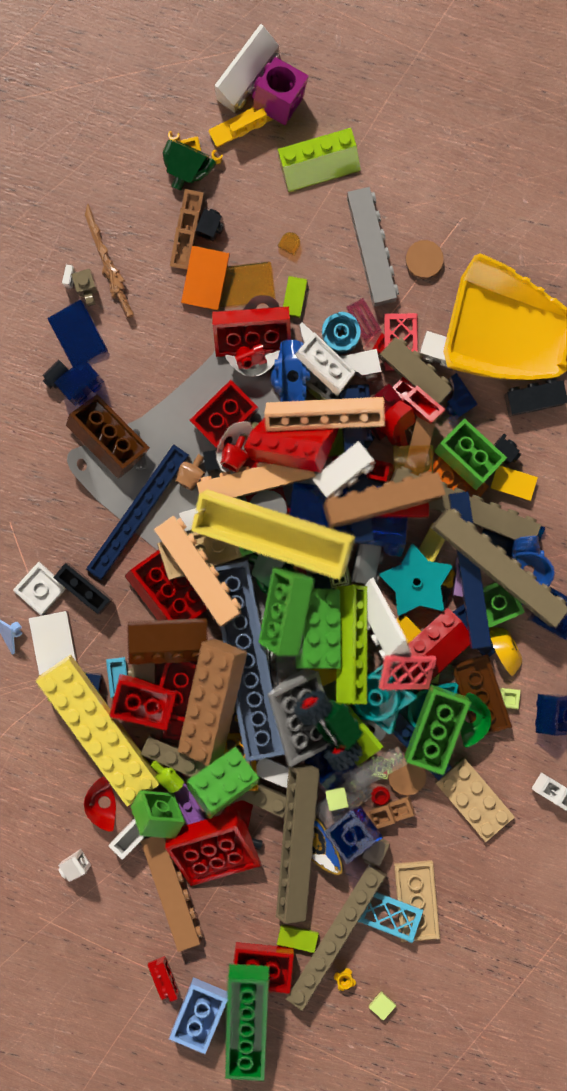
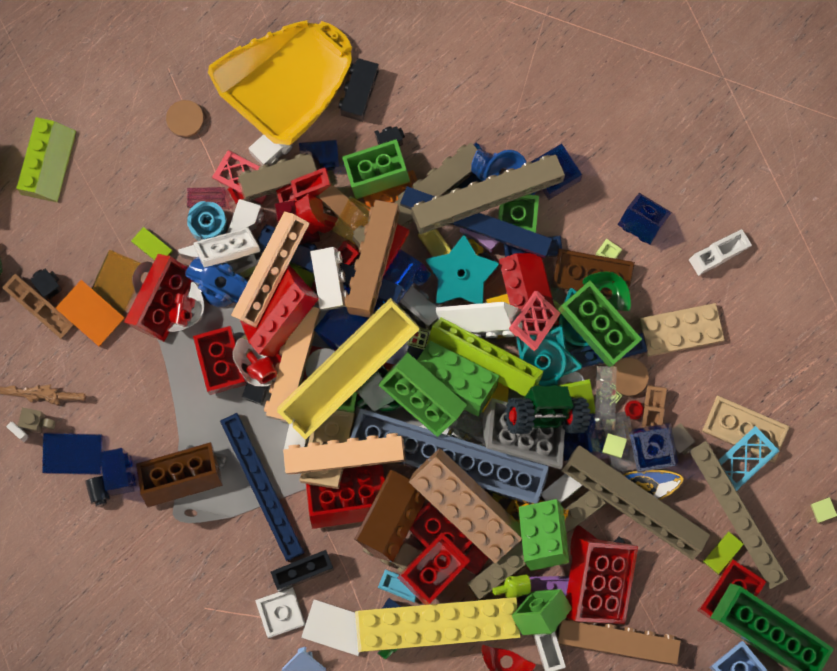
camera: 55 degrees left, 10 degrees down
(190, 473) = (255, 420): medium nougat piece -> none
(290, 243) = (102, 224): clear yellow tile -> none
(342, 985) = (787, 530): yellow plate -> none
(371, 246) = (148, 156): light grey brick -> none
(503, 646) = (559, 230): yellow piece -> none
(514, 482) = (422, 147): yellow piece -> none

